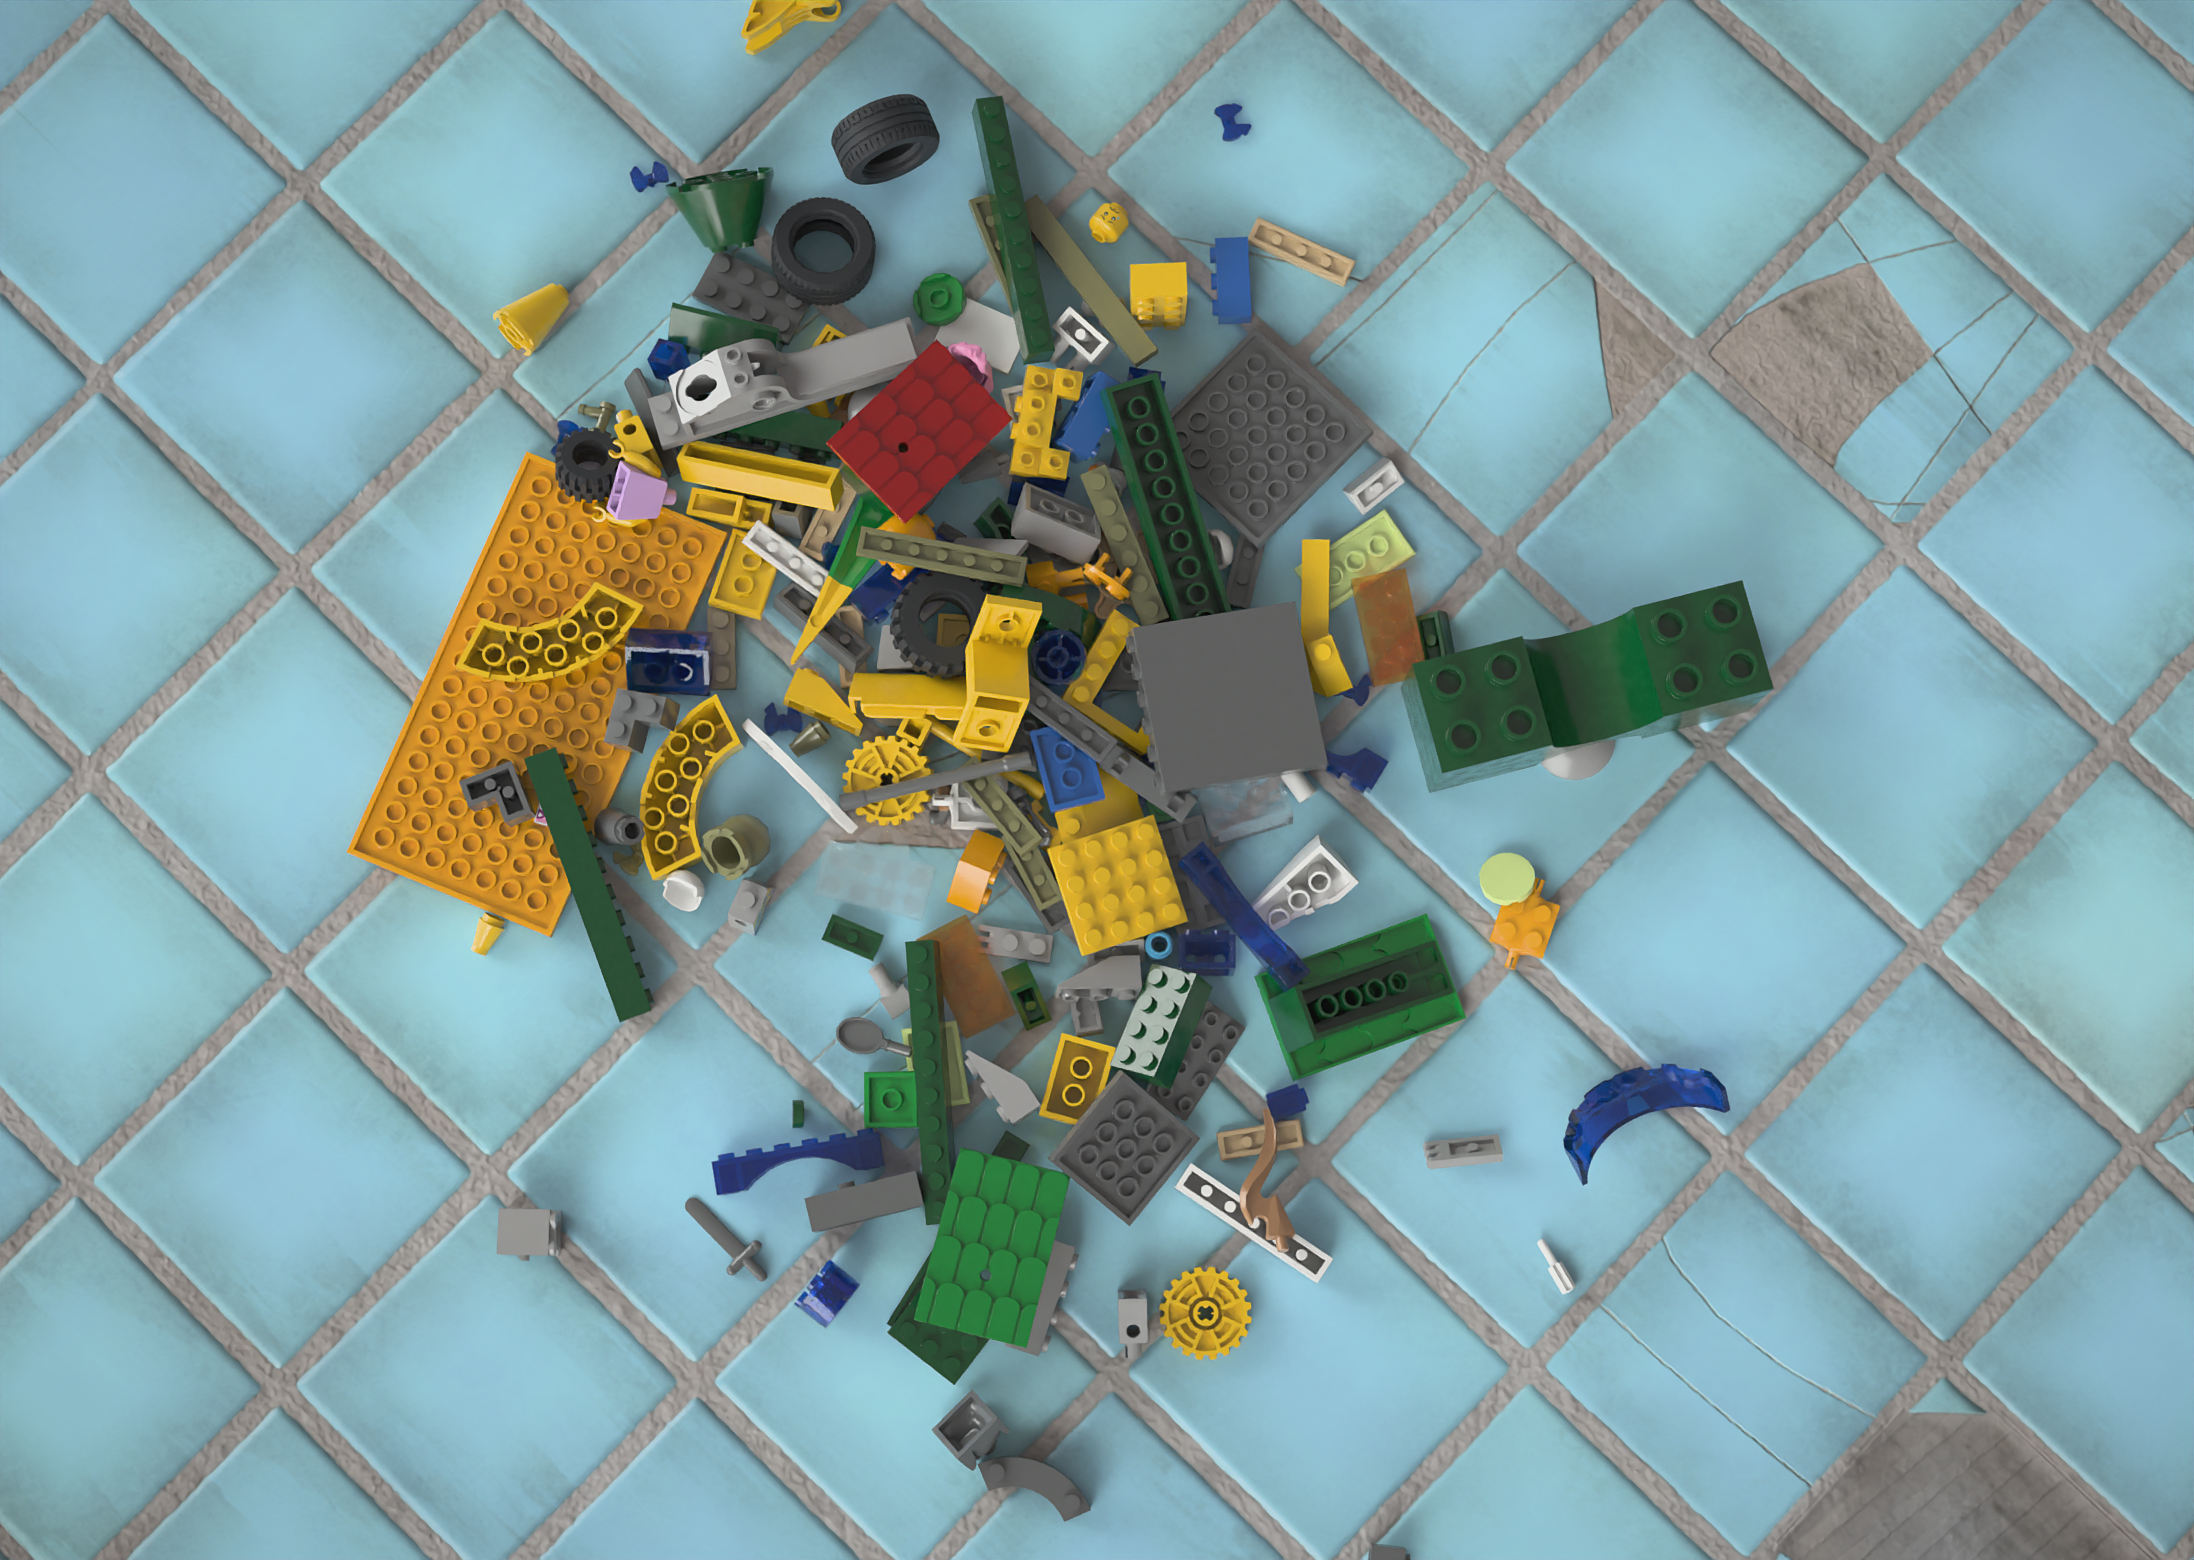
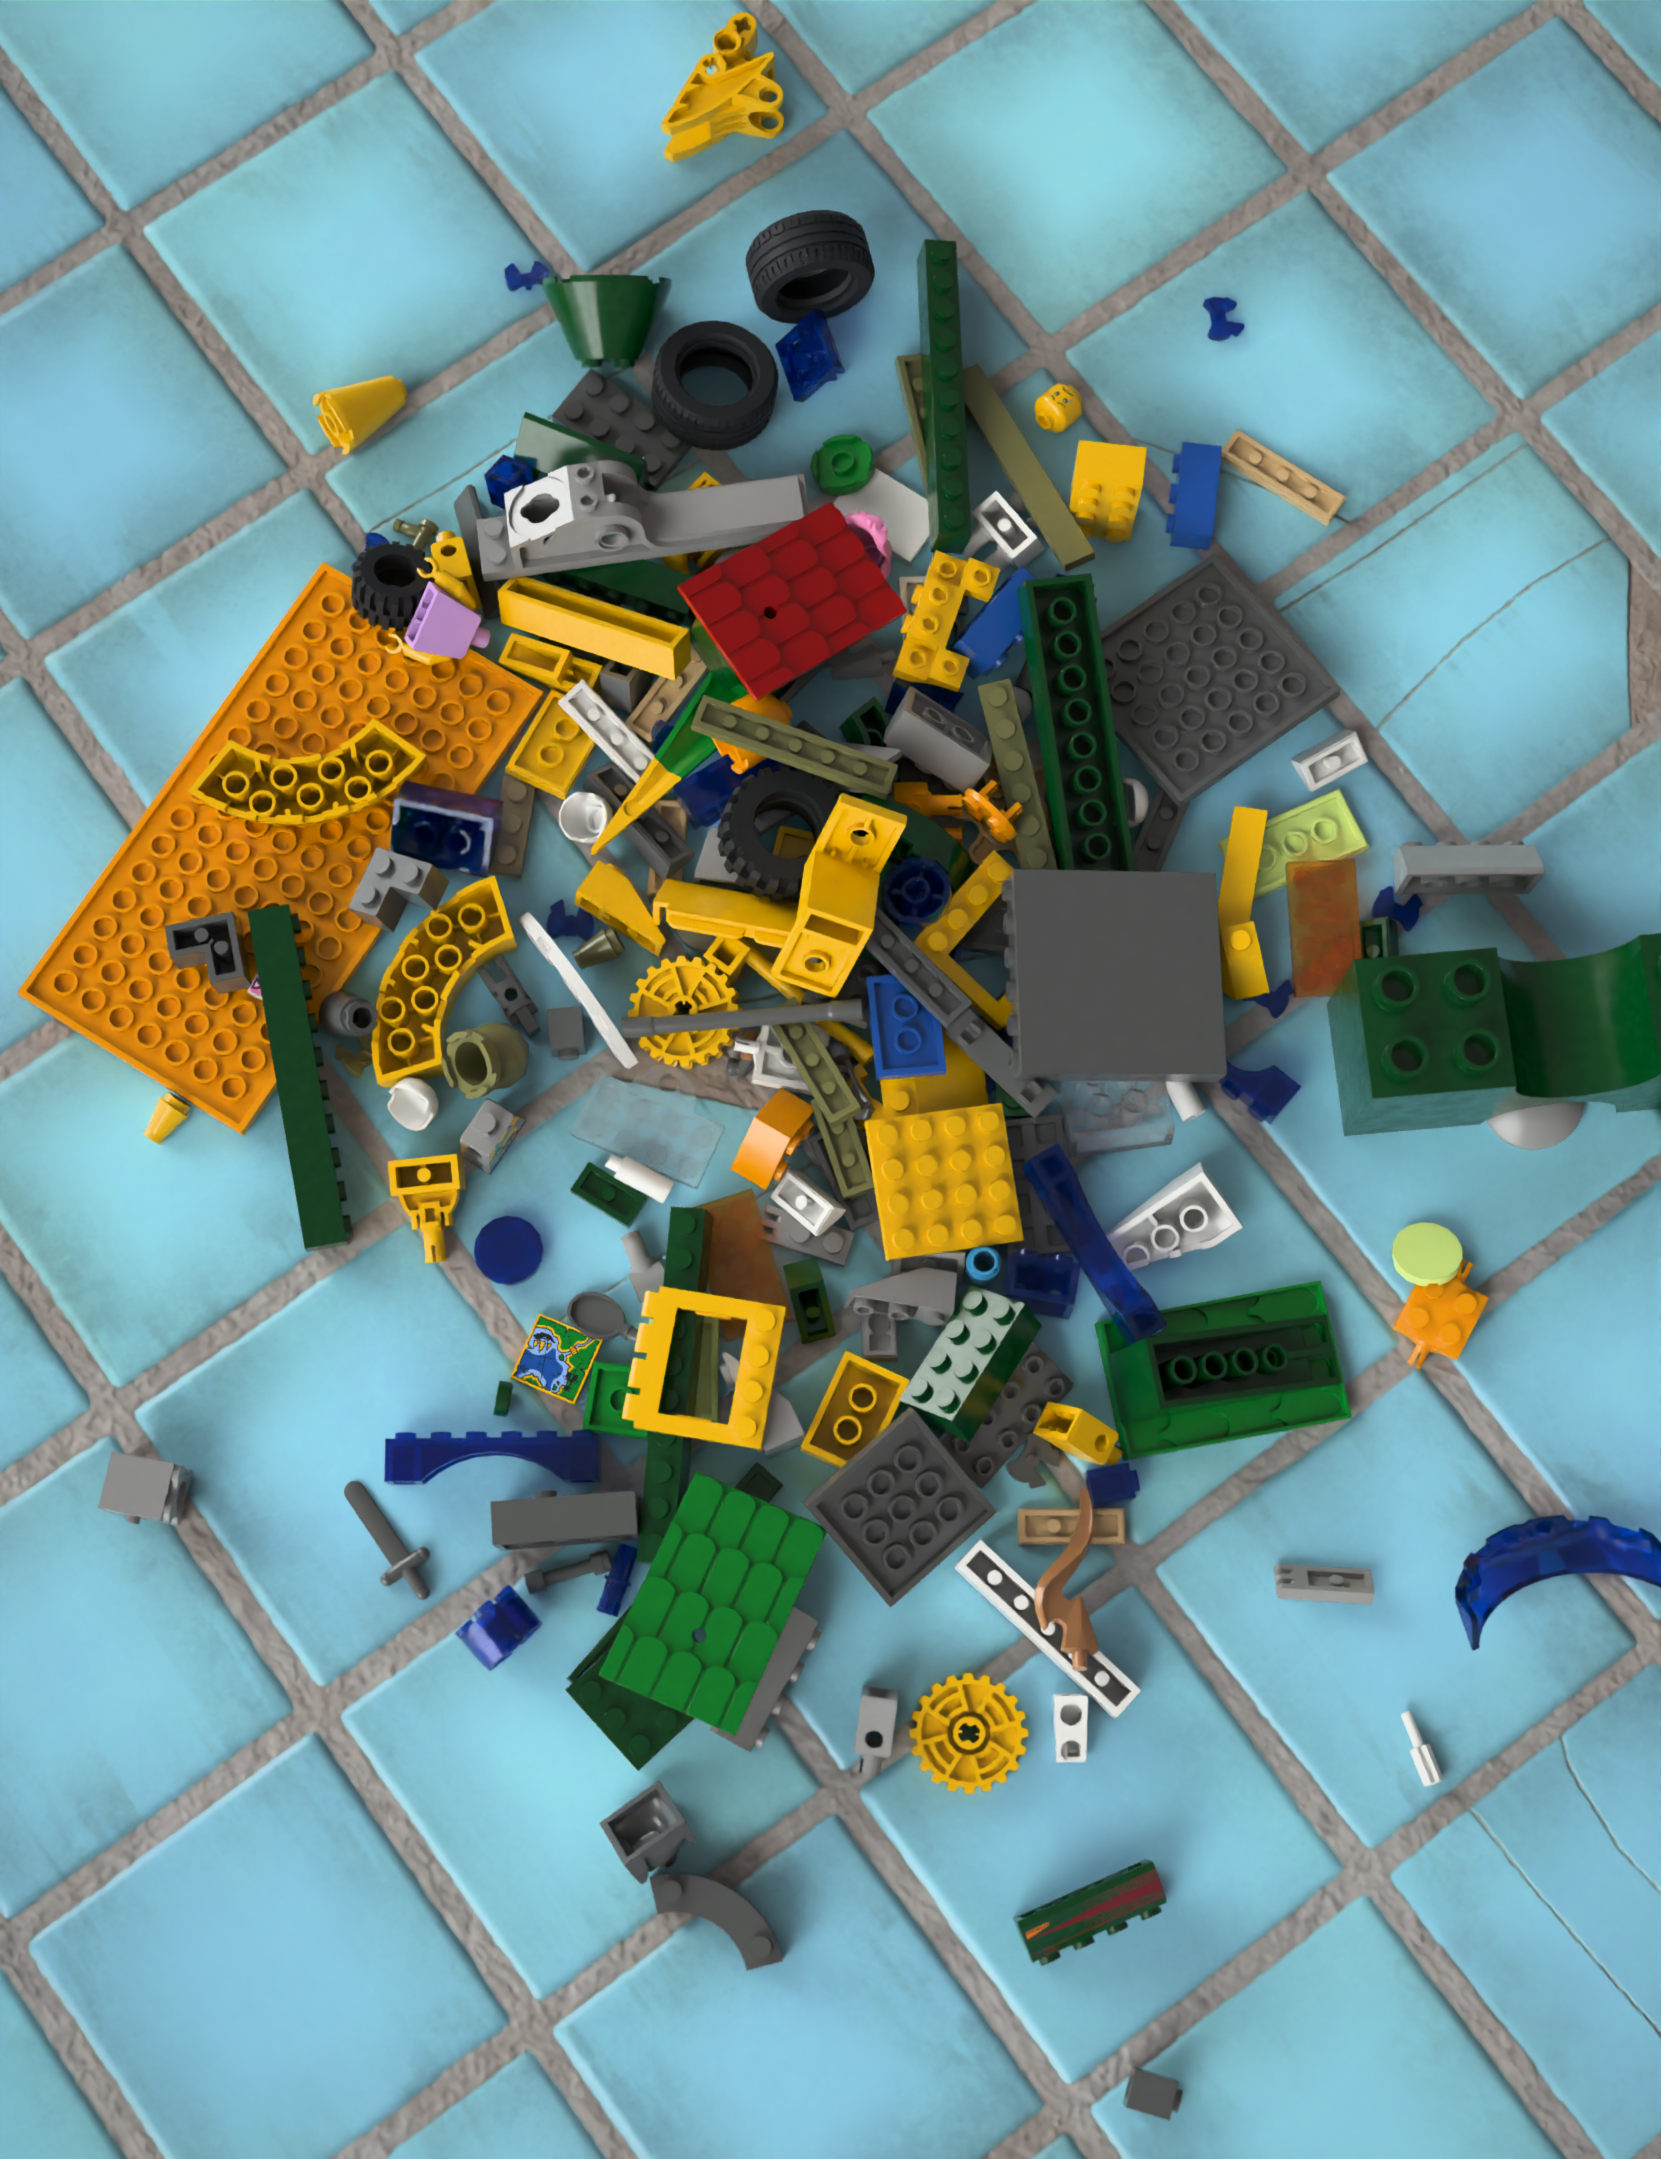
camera: 10 degrees right, 5 degrees down
(709, 958) = (428, 1190): none -> yellow brick
(755, 799) = (518, 1010): none -> dark grey hinge
(780, 632) = (584, 817): none -> white hair
(781, 995) = (508, 1250): none -> clear blue tile
(796, 812) = (566, 1032): none -> dark grey brick
(834, 1075) = (556, 1359): none -> tile
(850, 1251) = (538, 1580): none -> dark grey bar
(875, 920) = (640, 1177): none -> white cylinder
(896, 211) = (809, 356): none -> clear blue plate
(913, 1241) = (617, 1580): none -> clear blue axle
(994, 1065) = (754, 1375): none -> yellow hinge
(1012, 917) = (807, 1202): none -> white slope
(1223, 1083) = (1023, 1467): none -> dark grey piece
(1254, 1067) = (1078, 1434): none -> yellow torso
(1283, 1294) = (1070, 1727): none -> white leg
(1319, 1432) = (1091, 1910): none -> dark green slope
(1453, 604) = (1406, 915): none -> clear blue piece
(1495, 560) = (1466, 868): none -> light grey slope

